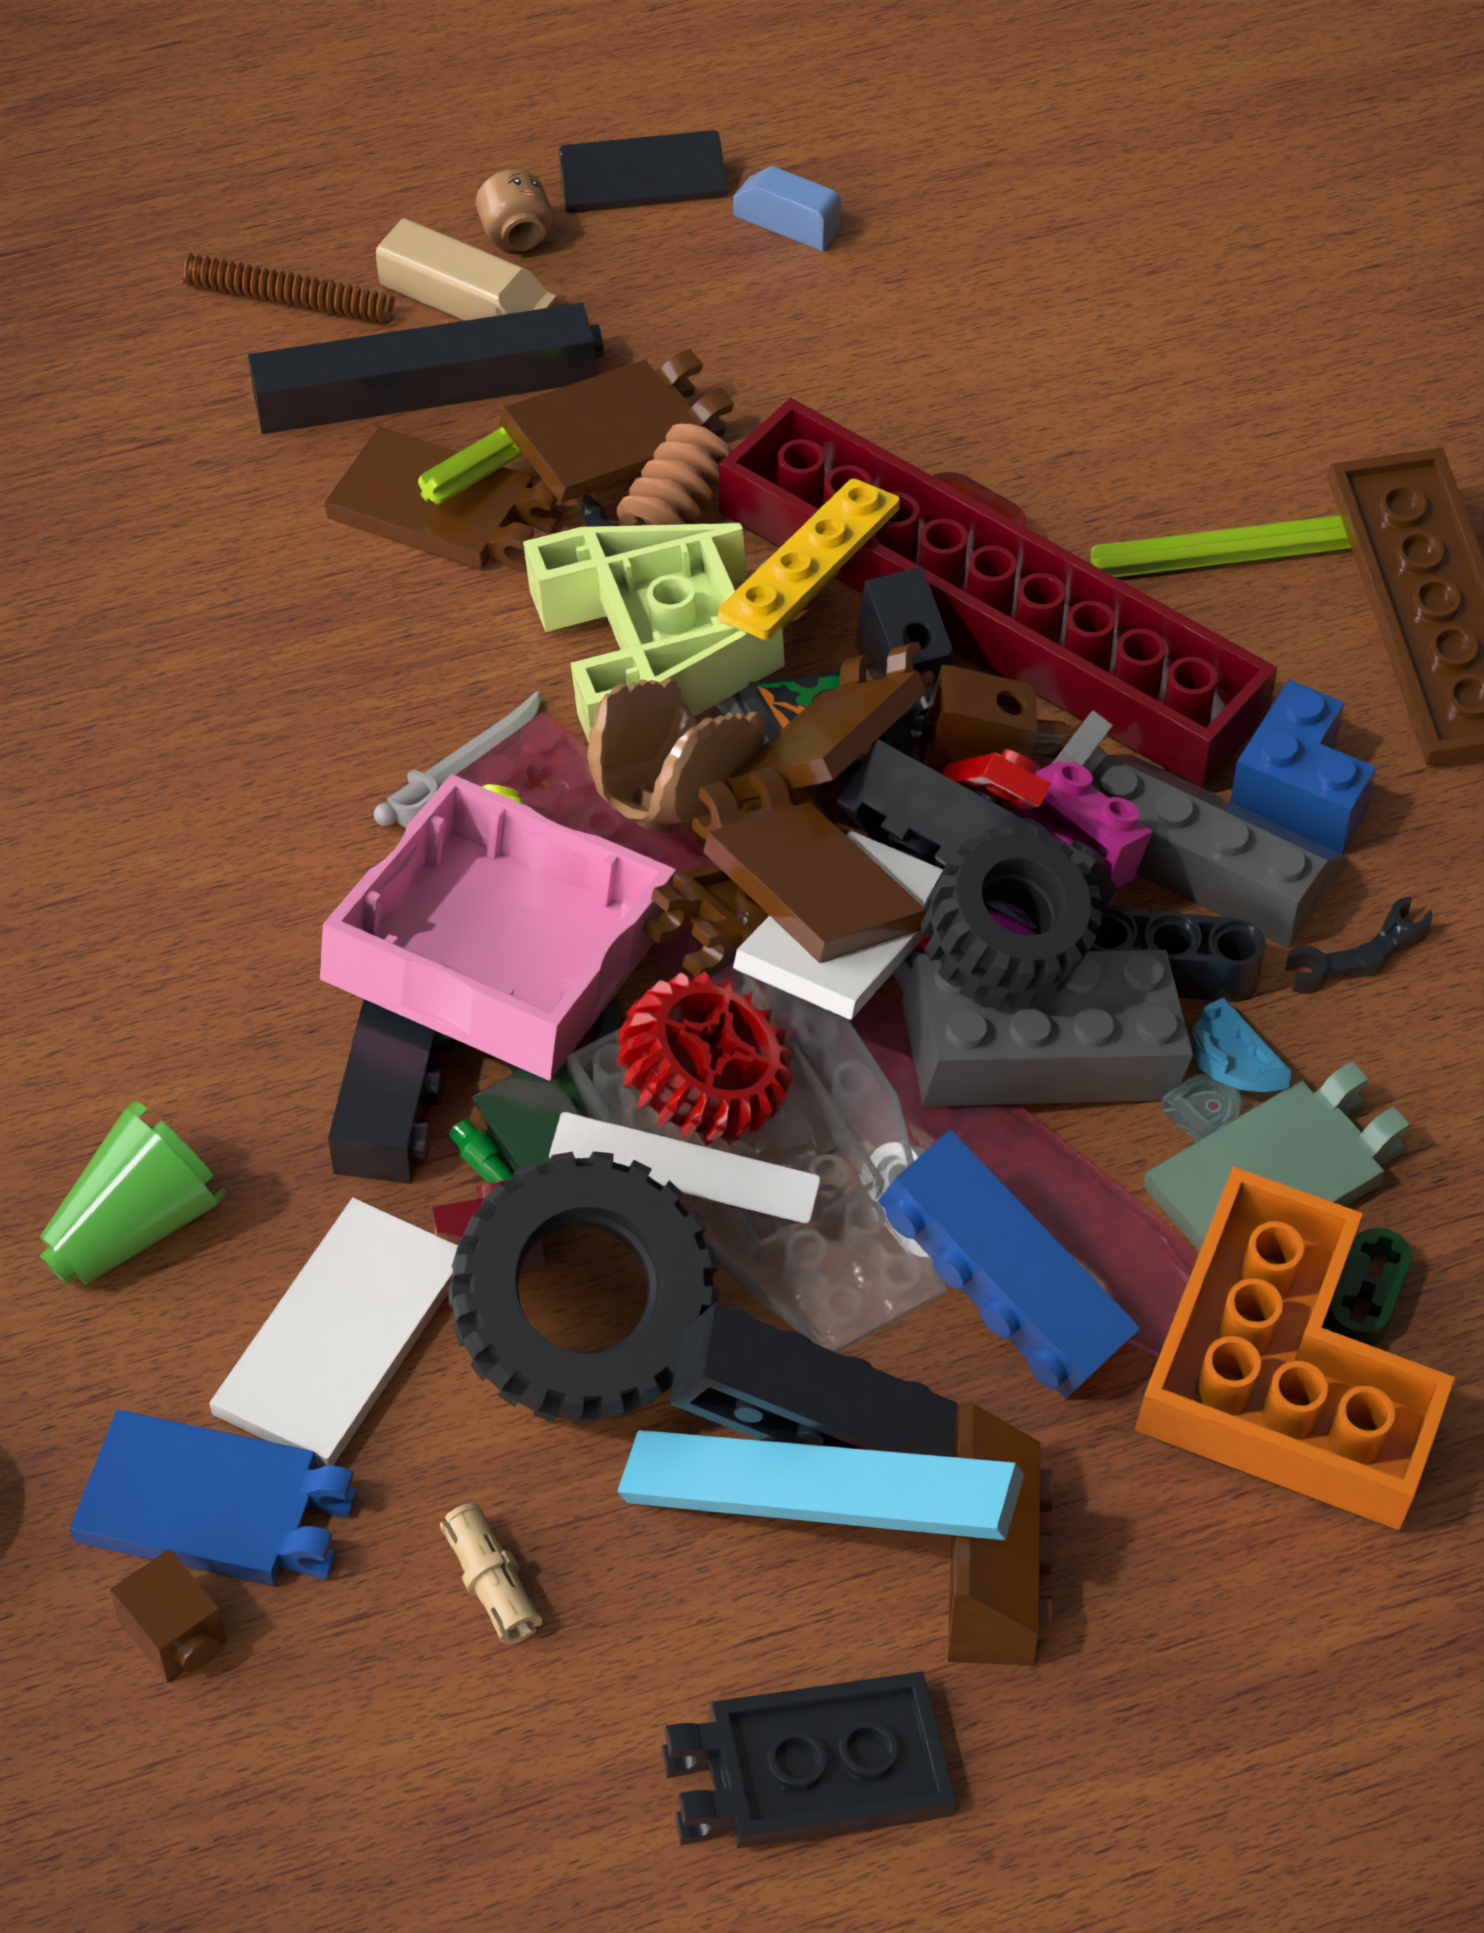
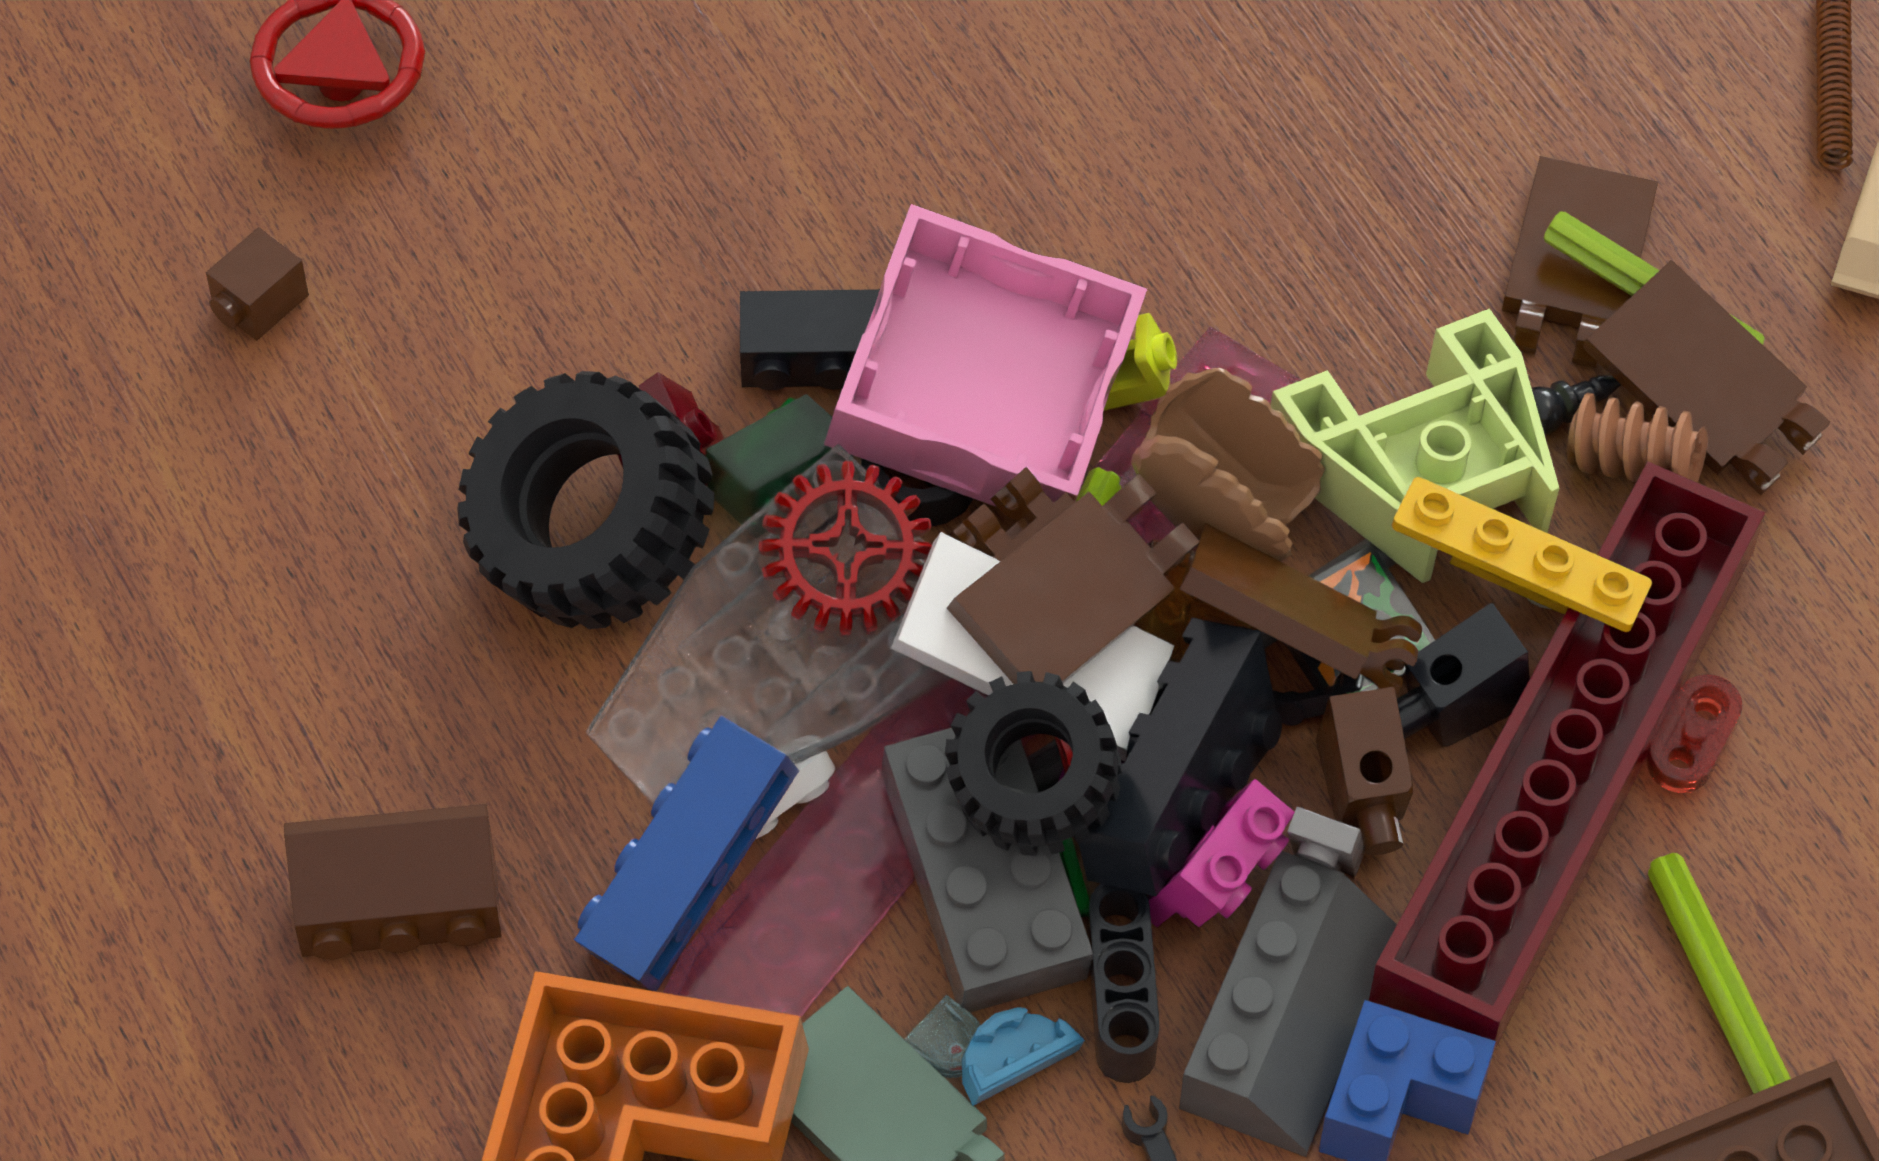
camera: 80 degrees right, 5 degrees up
(127, 1199) = (665, 166): bright green cone -> none
(210, 1499) = (381, 294): blue tile -> none
(338, 1333) = (518, 337): white tile -> none
(409, 800) = (1179, 309): light grey sword -> none
(423, 367) = (1750, 205): black brick -> none
(490, 1573) = (296, 531): tan pin -> none
(694, 1167) = (735, 564): white sticker -> none
(800, 1393) = (497, 698): black brick -> none
(812, 1762) = (176, 788): black tile -> none
(823, 1484) = (408, 723): medium azure tile -> none
(1003, 779) = (1240, 748): red plate -> none

